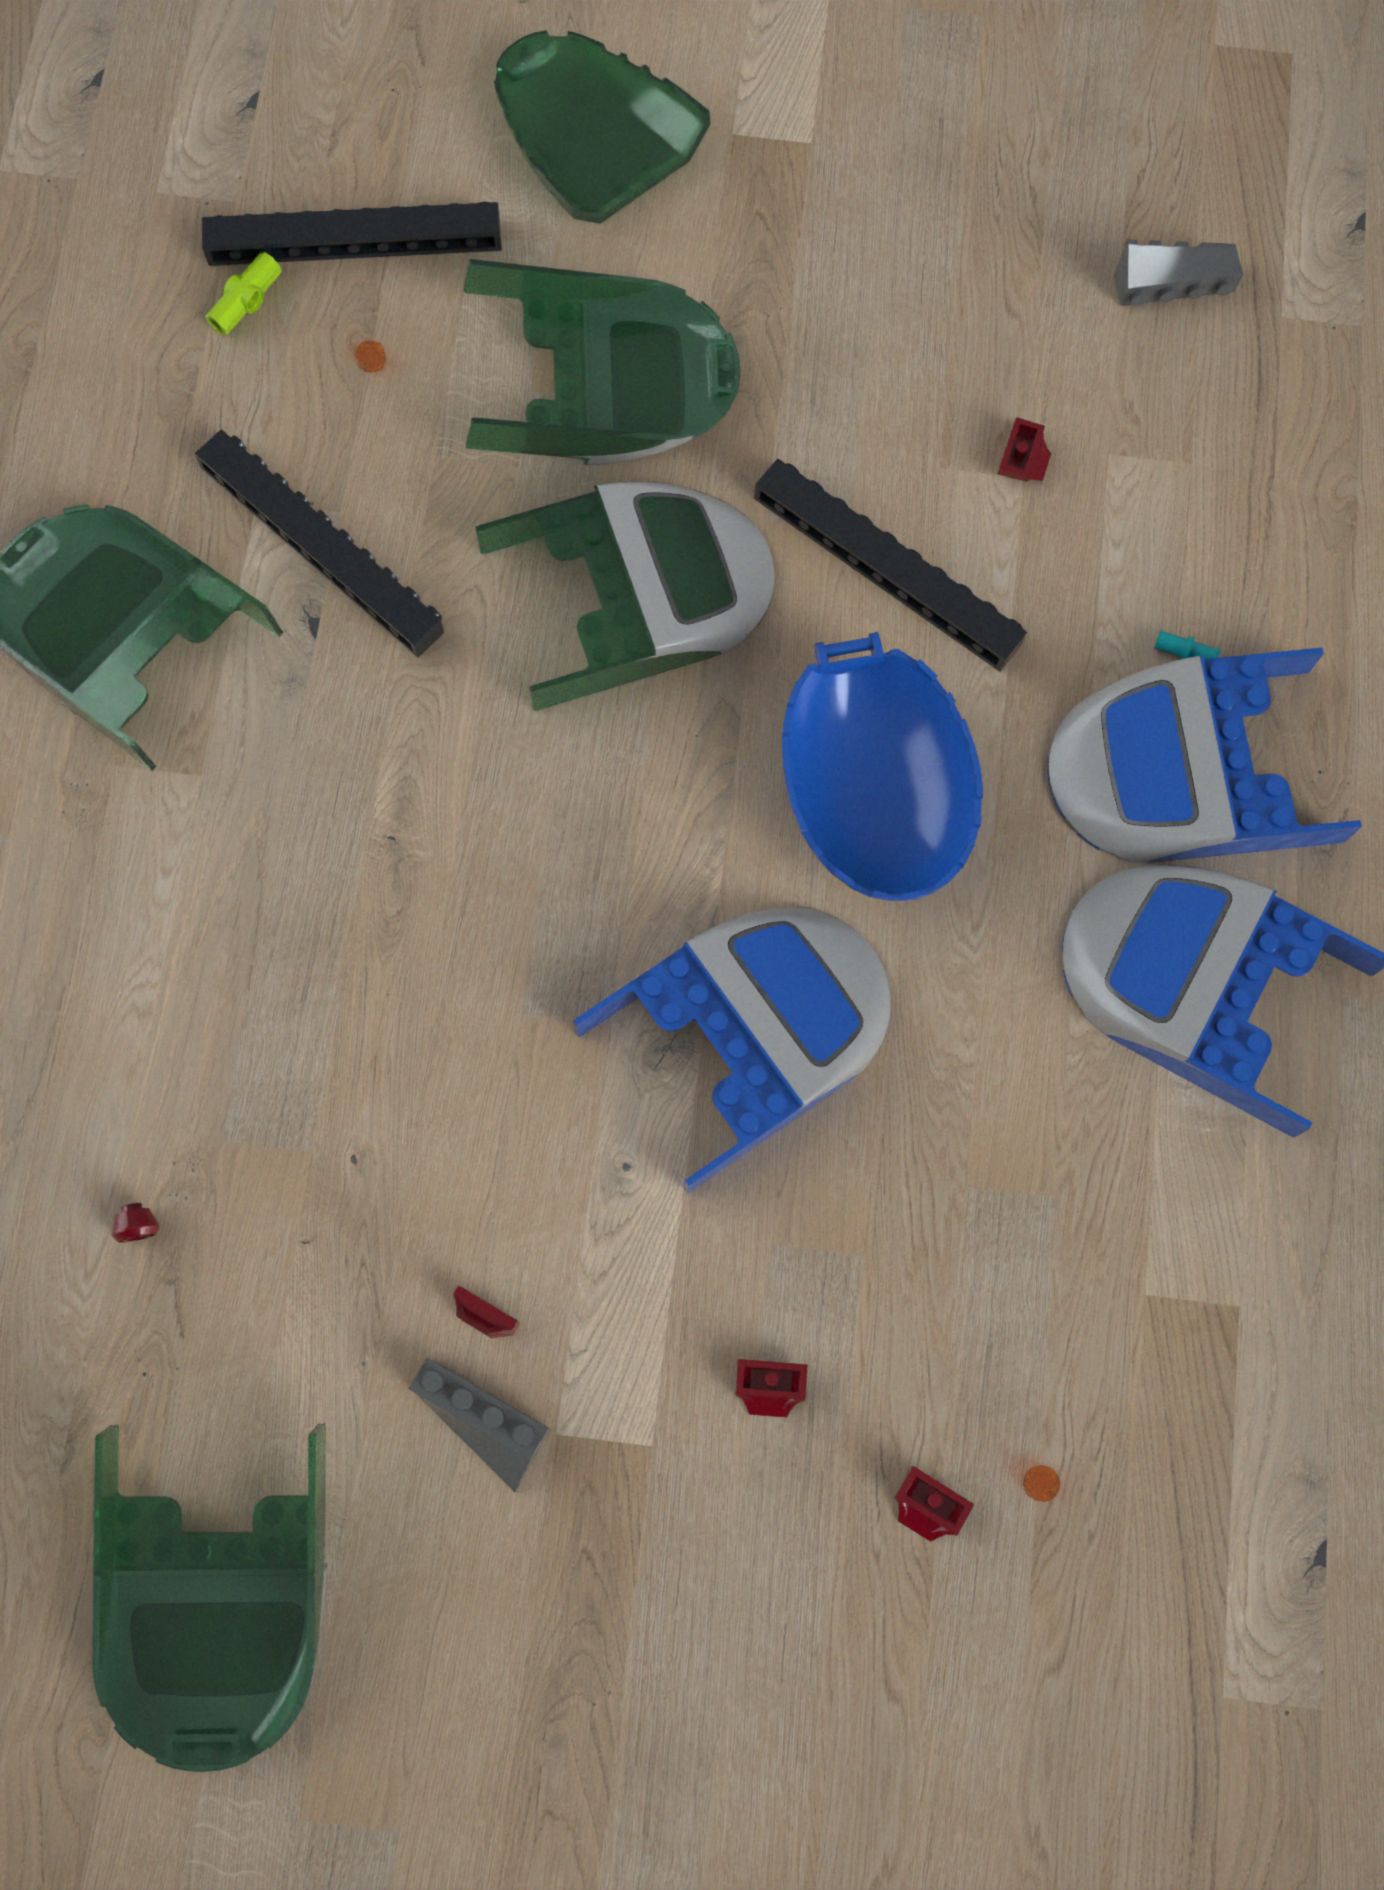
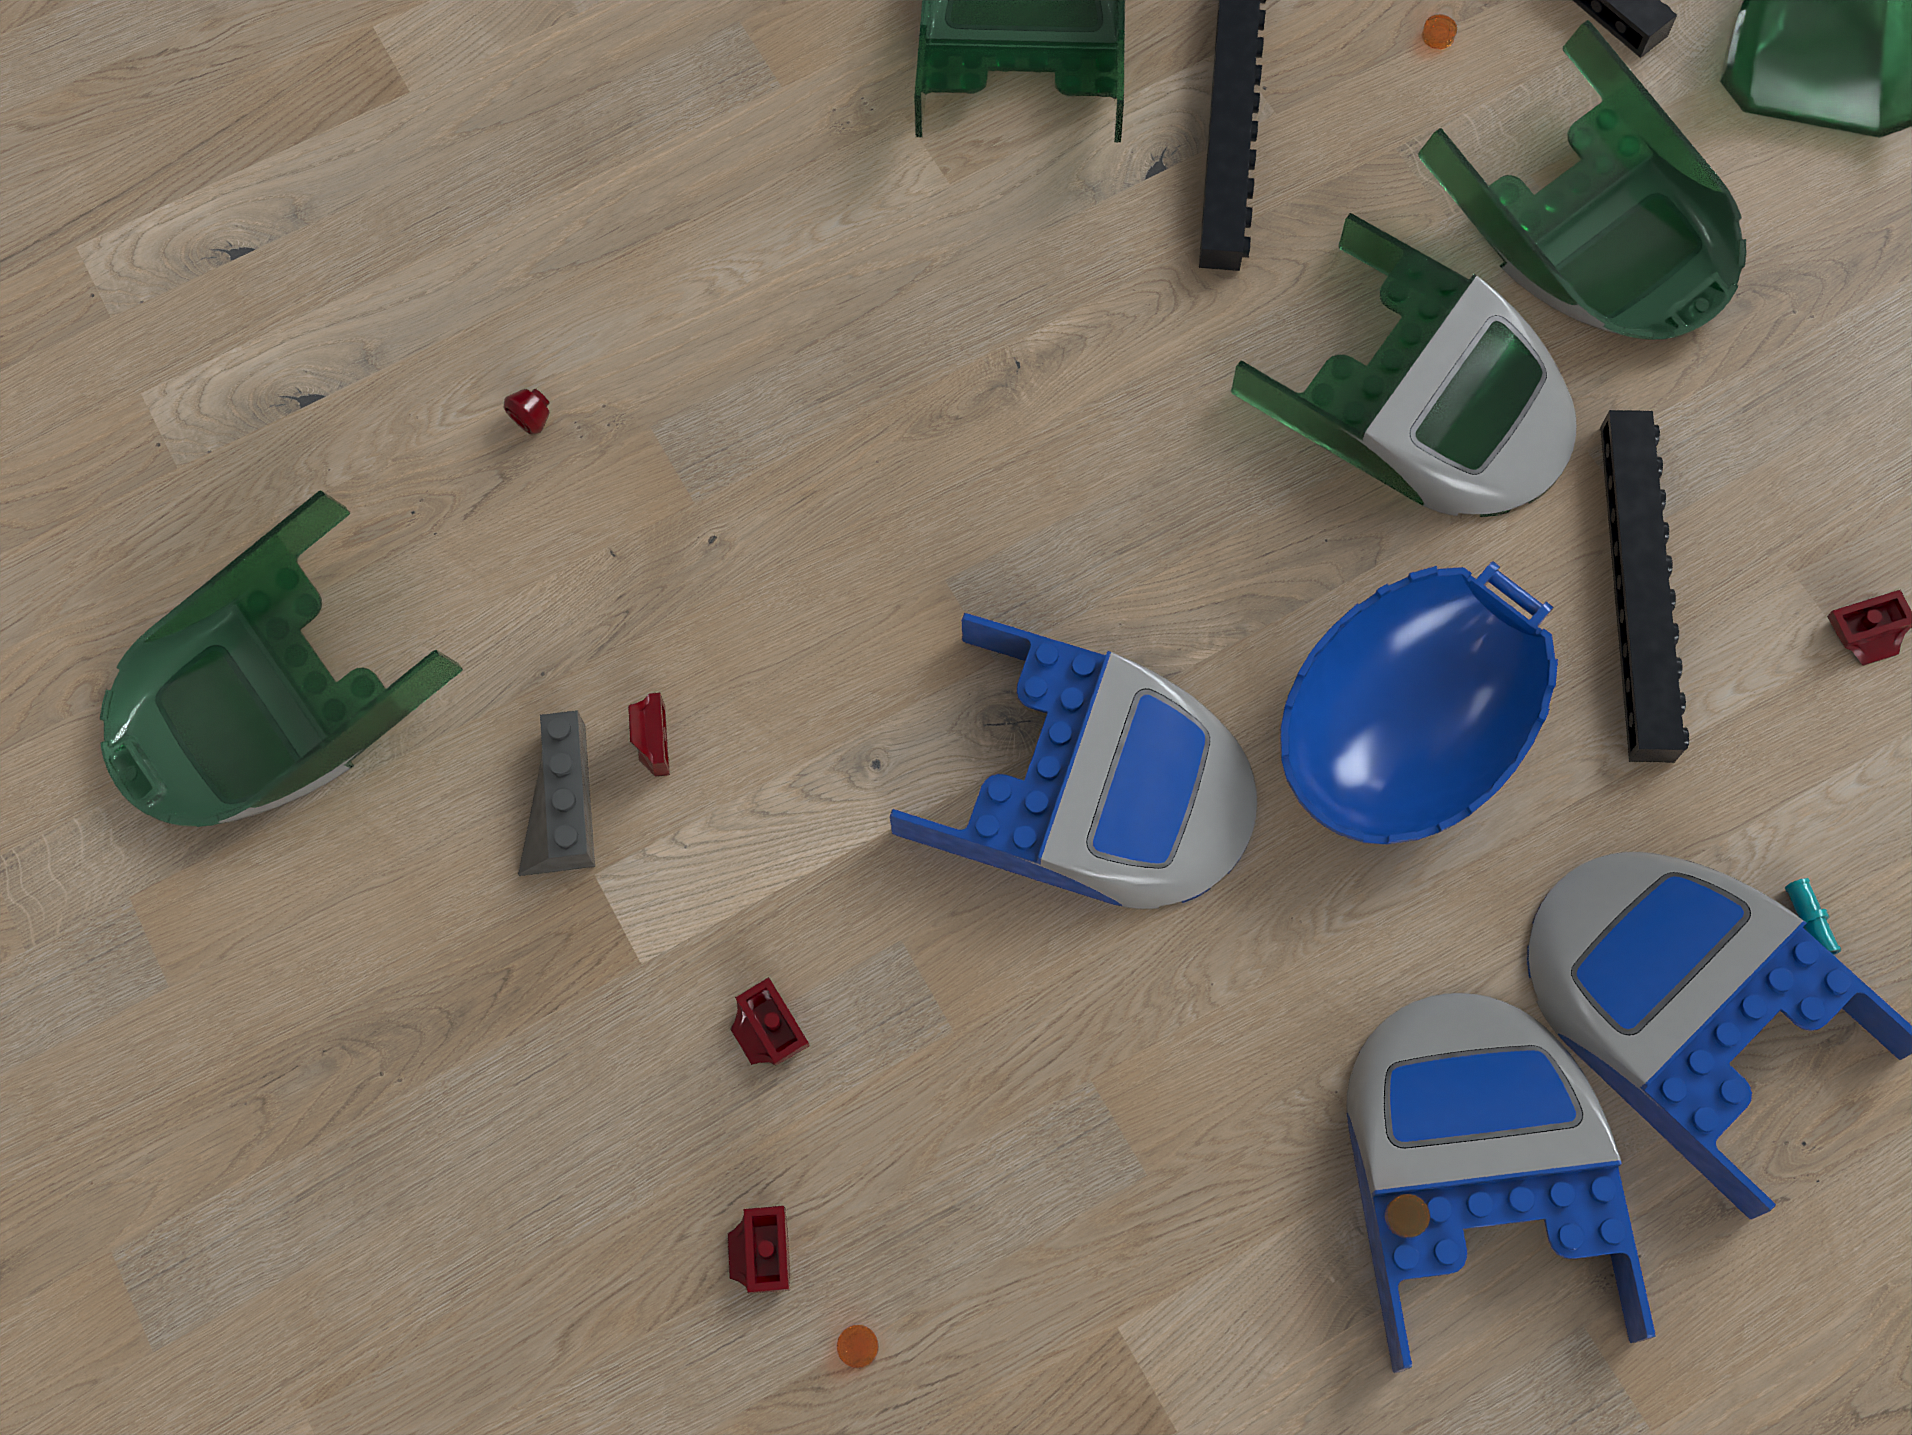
camera: 60 degrees right, 5 degrees down
(1220, 1050) = (1407, 1215): none -> clear orange tile

